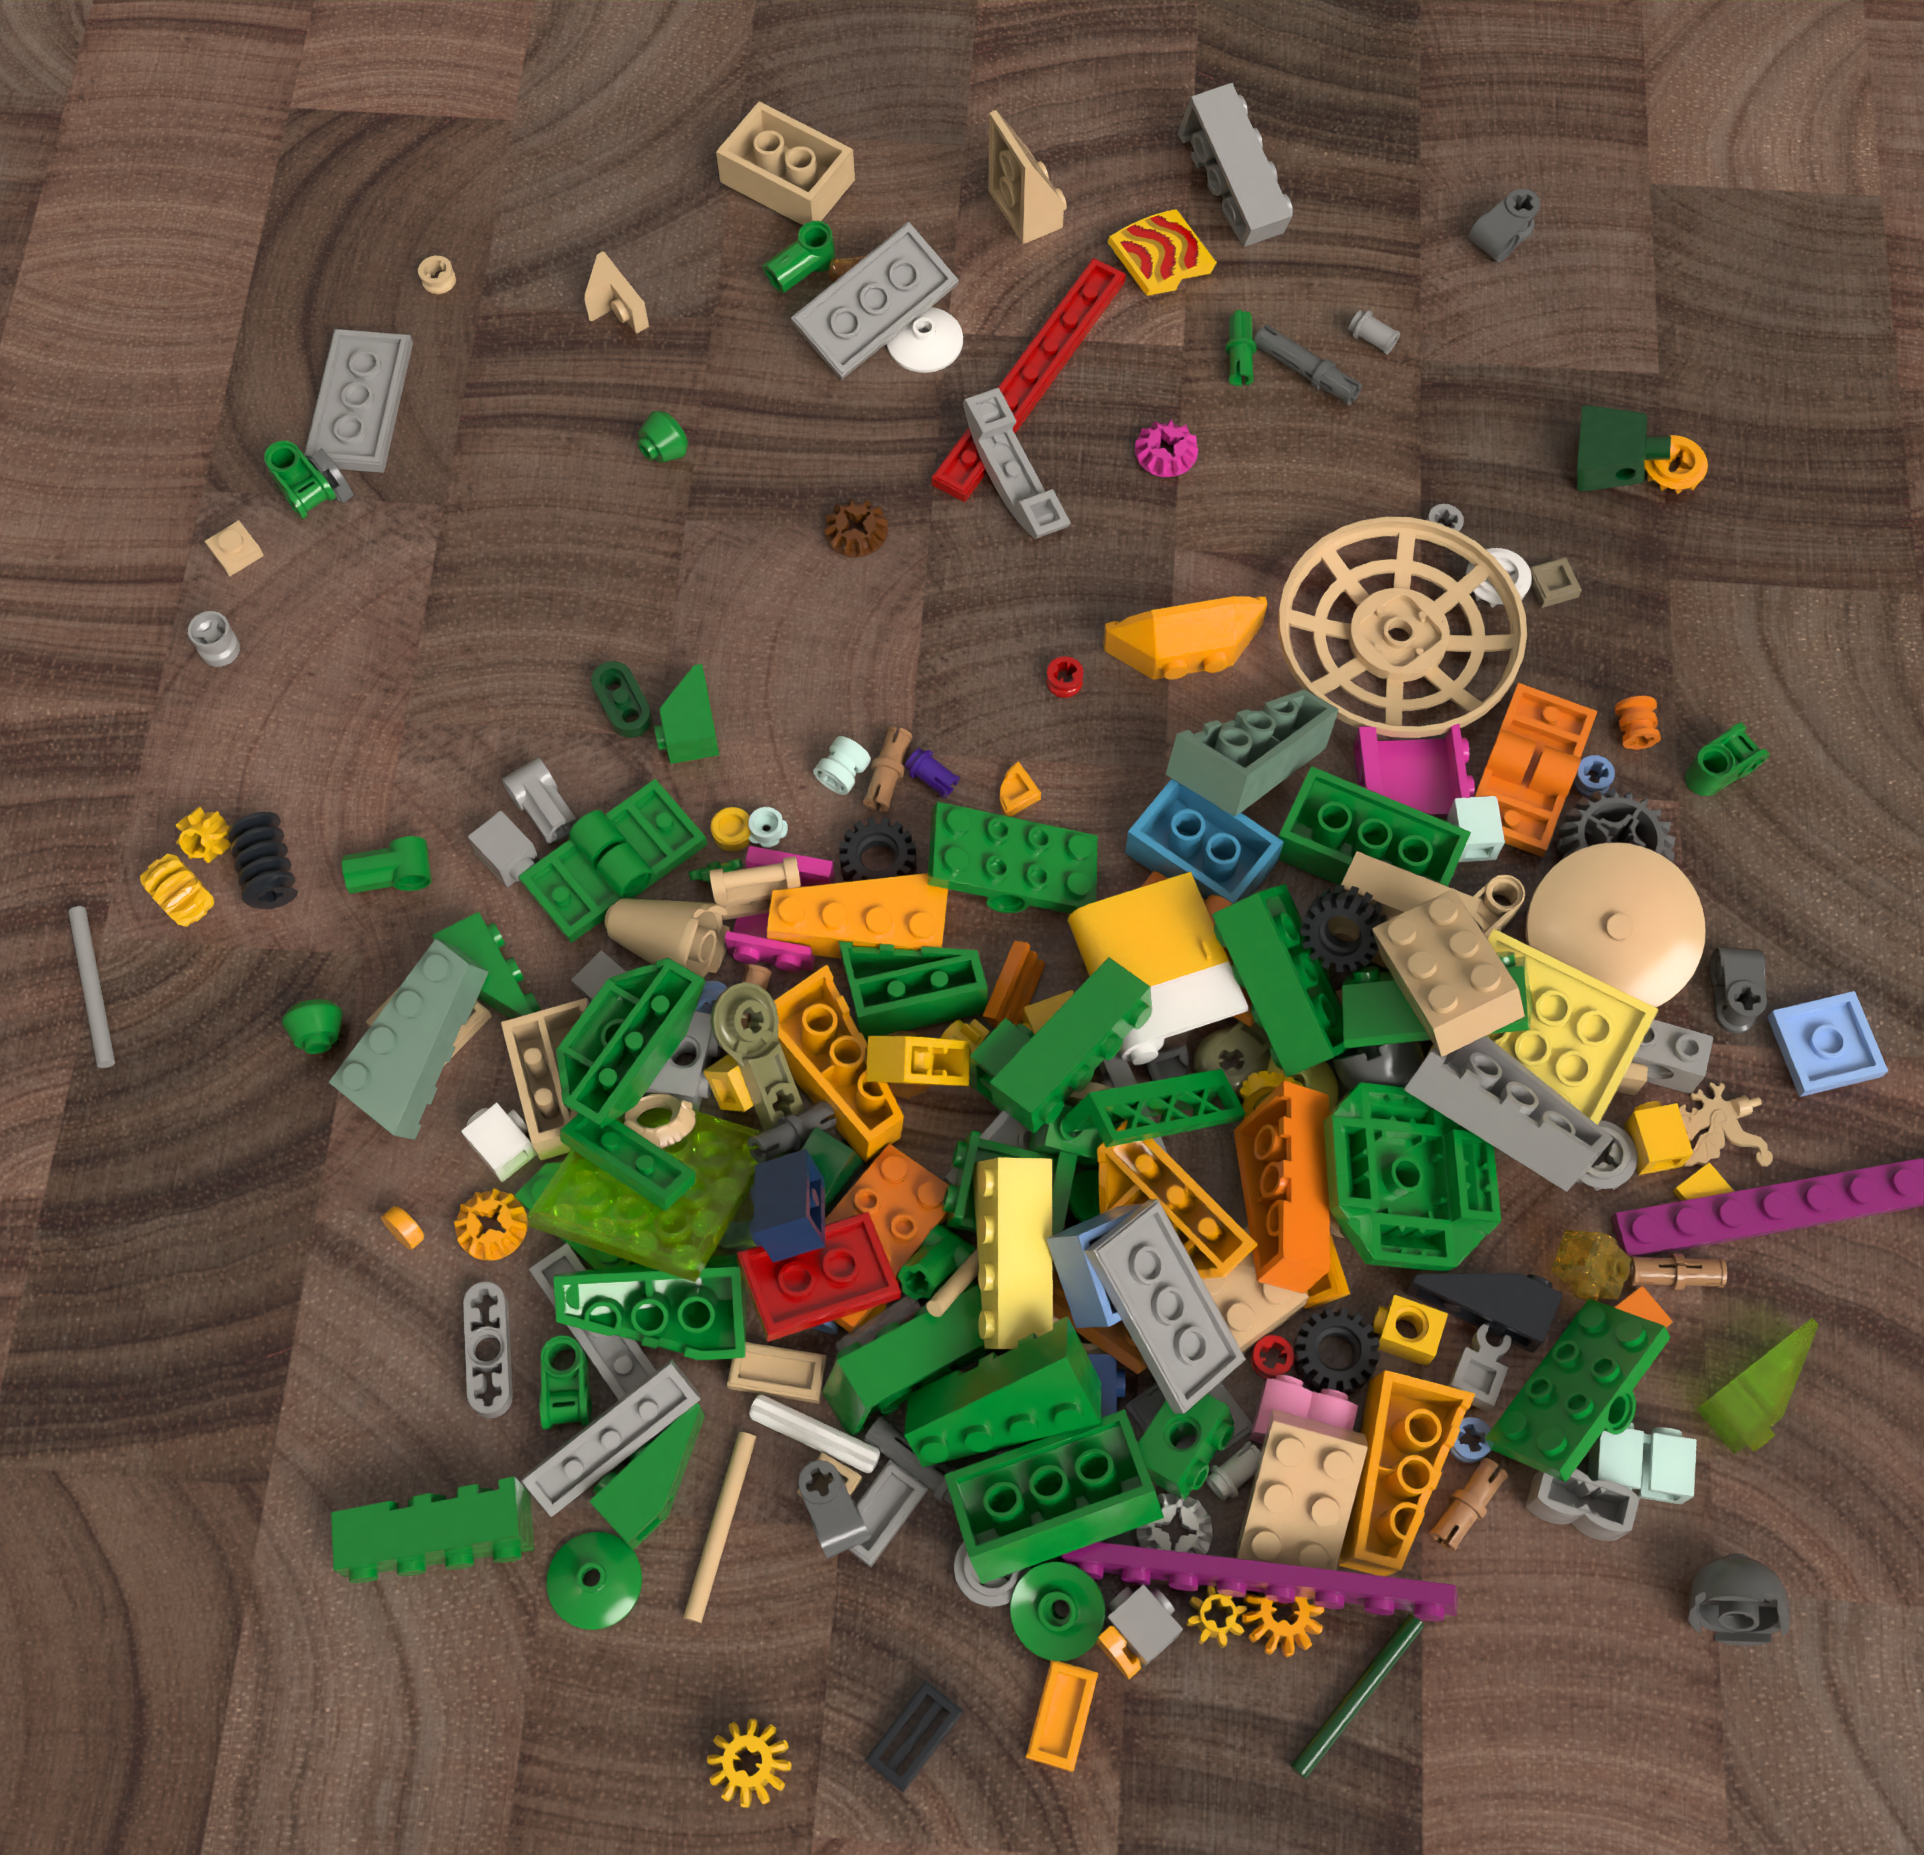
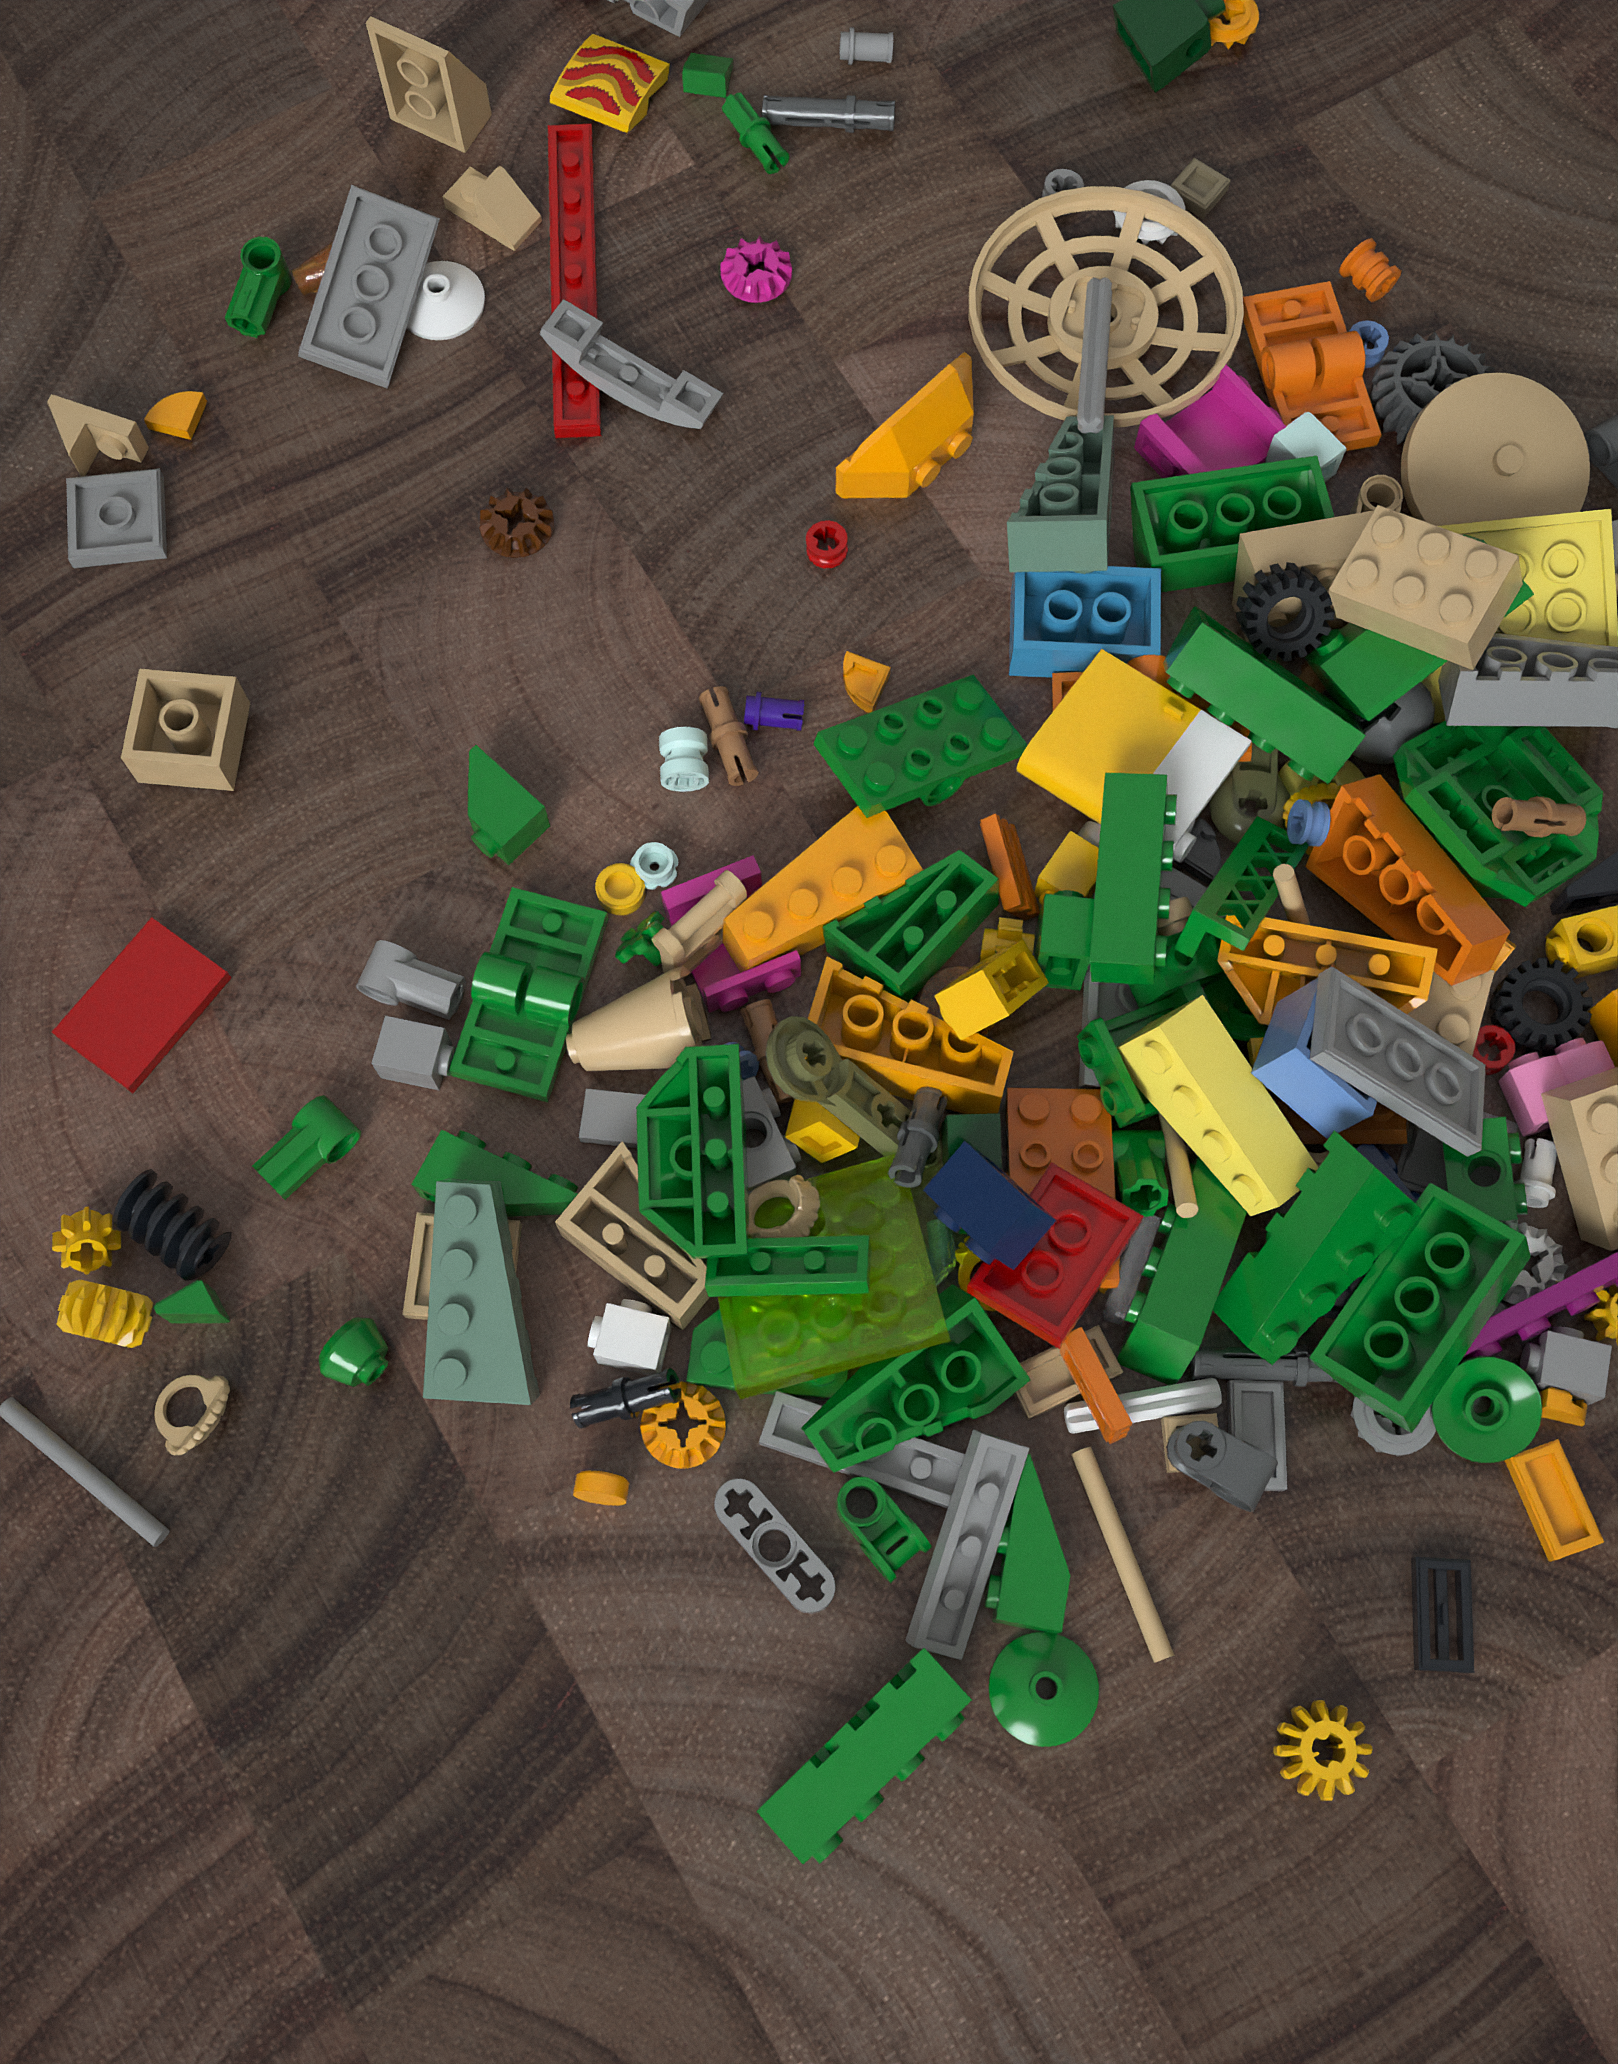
camera: 35 degrees left, 5 degrees up
(206, 994) = (215, 1395): none -> tan piece
(238, 922) = (193, 1305): none -> green slope
(358, 703) = (142, 1005): none -> red tile
(463, 1177) = (625, 1398): none -> black pin
(520, 533) = (186, 729): none -> tan brick
(589, 362) = (116, 518): none -> light grey tile
(622, 702) = (418, 832): dark green plate -> none
(662, 438) = (255, 548): green cone -> none
(683, 314) = (177, 414): none -> light orange tile
(782, 1390) = (1095, 1386): none -> orange tile
(785, 165) = (173, 202): tan brick -> none
(876, 835) = (778, 800): black tyre -> none
(1010, 294) = (493, 206): none -> tan slope
(1186, 1142) = (1290, 894): none -> tan bar
(1240, 285) = (707, 75): none -> green slope
(1249, 1096) = (1308, 823): none -> medium blue bush
(1354, 656) = (1094, 356): none -> light grey axle
(1421, 1202) = (1538, 816): none -> medium nougat pin
(1729, 757) = (1466, 262): green piece -> none

